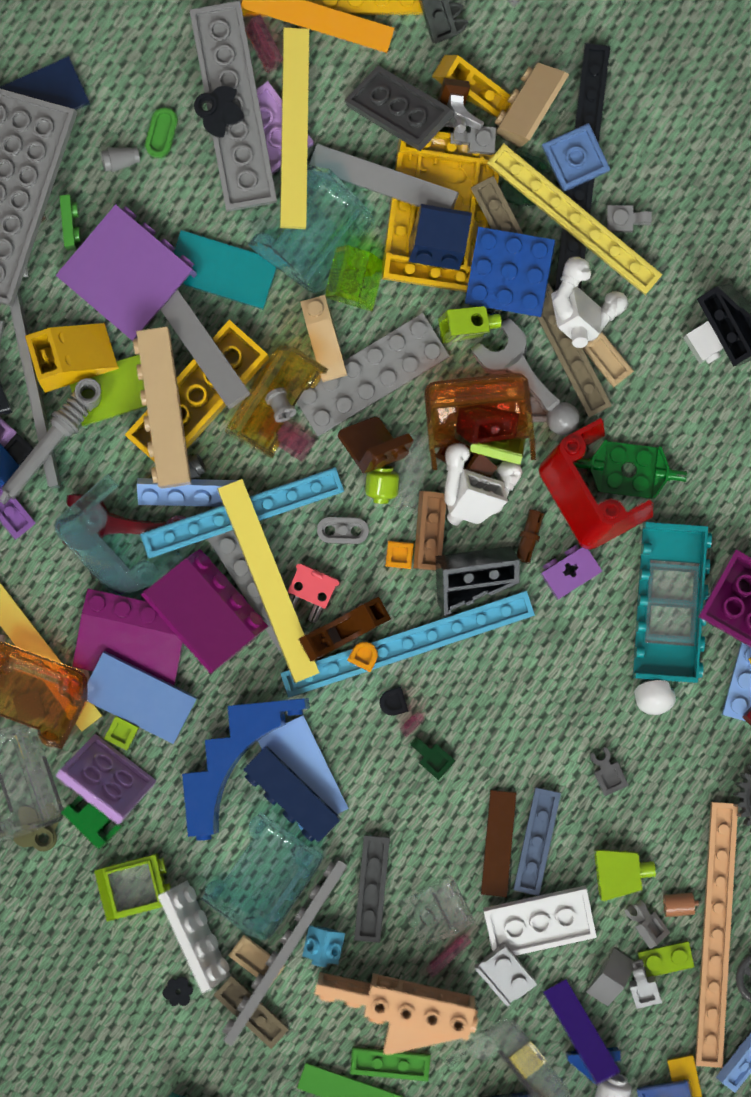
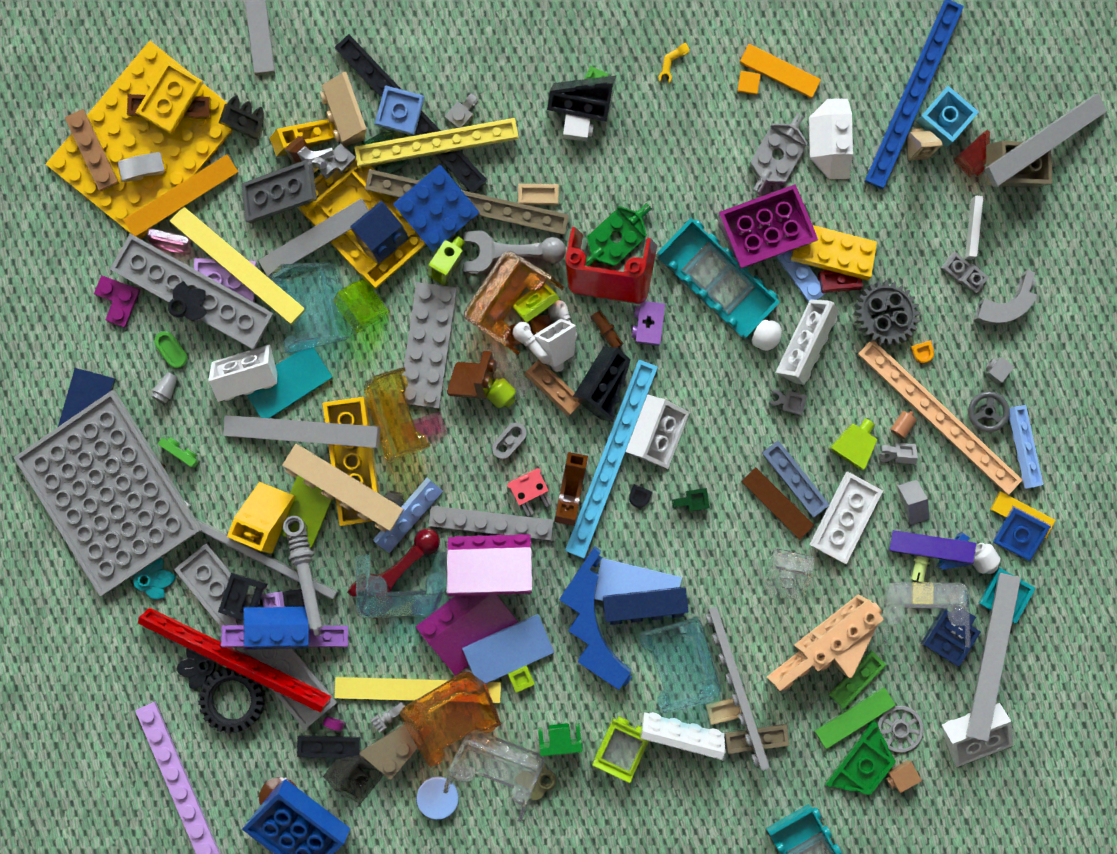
camera: 60 degrees left, 0 degrees up
(106, 778) = (542, 711): lavender plate -> none
(125, 271) = (239, 442): medium lavender panel -> none
(172, 46) = (122, 298): none -> magenta plate
(174, 998) = (703, 778): black plant -> none
(195, 220) = (243, 373): none -> white slope
(265, 505) = (447, 493): medium azure tile -> none
(267, 579) = (501, 511): light yellow tile -> none
(280, 405) = (401, 414): light grey bush -> none
(323, 337) = (381, 354): tan slope -> none
(323, 945) = (753, 661): medium azure brick -> none
(364, 655) = (597, 490): light orange tile -> none
(371, 888) = (742, 603): dark grey plate -> none
(399, 554) = (552, 418): light orange tile -> none
(411, 724) = (662, 495): clear pink tile -> none
(448, 954) = (820, 589): clear pink tile -> none
(471, 667) = (657, 431): none -> white slope
(486, 424) = (517, 299): clear red slope -> none
(505, 974) = (860, 564): plate -> none
(552, 1037) = (920, 566): none -> yellowish green pin
(576, 312) = (493, 188): white torso -> none
(644, 988) = (937, 487): light grey plate -> none
(667, 959) = (929, 460): lime plate -> none
(682, 742) = (808, 341): none -> white slope

